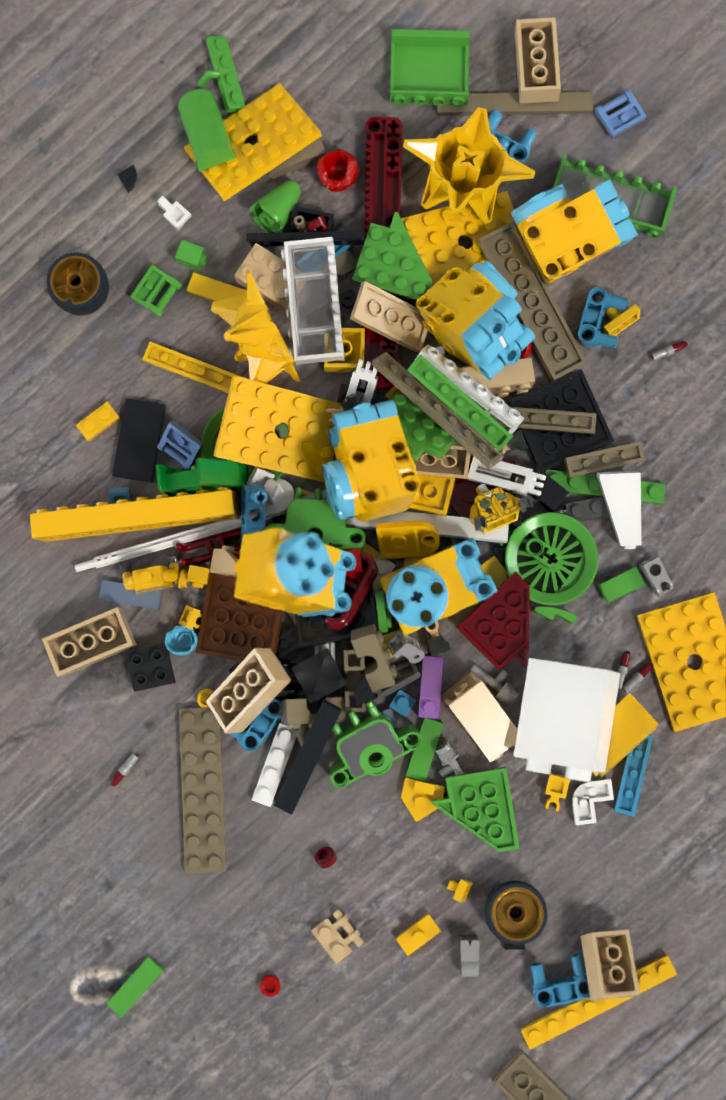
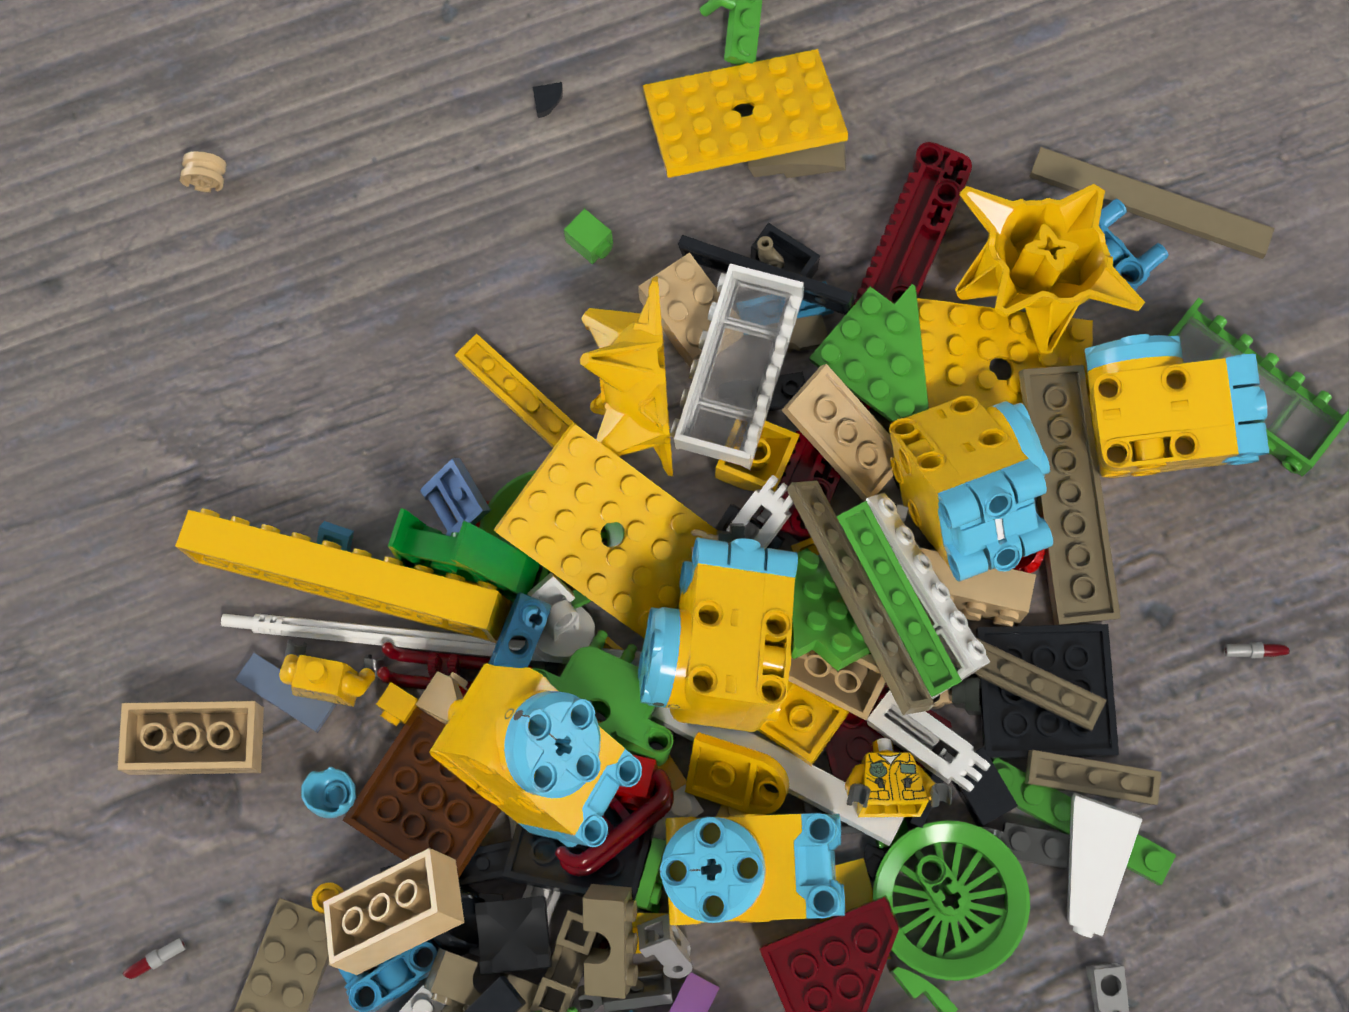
camera: 20 degrees right, 10 degrees down
(86, 296) = (413, 235): pearl gold wheel -> none
(98, 421) = (352, 419): yellow plate -> none
(138, 440) = (398, 468): black tile -> none
(150, 667) = (264, 815): black brick -> none
(151, 286) = (512, 258): bright green plate -> none
(175, 213) = (590, 170): white plate -> none
(182, 579) = (370, 698): yellow plate -> none
(189, 617) = (357, 762): yellow tile -> none
(205, 129) = (684, 70): bright green brick -> none
(212, 289) = (595, 291): yellow tile -> none
(276, 207) = (740, 215): bright green cone -> none
(317, 222) = (792, 256): dark red tile -> none
(337, 170) = (851, 197): red hair -> none
(363, 693) = (569, 991): black tile -> none
(429, 67) = (1044, 106): bright green panel -> none
(436, 642) = (716, 959): pearl dark grey piece -> none
(537, 60) = (1207, 153): tan brick -> none
(593, 318) = (1155, 555): dark azure piece -> none
(621, 321) = (1195, 576): yellow tile -> none
(621, 584) = (1047, 987): bright green slope -> none
(623, 118) = (1305, 283): medium blue plate -> none

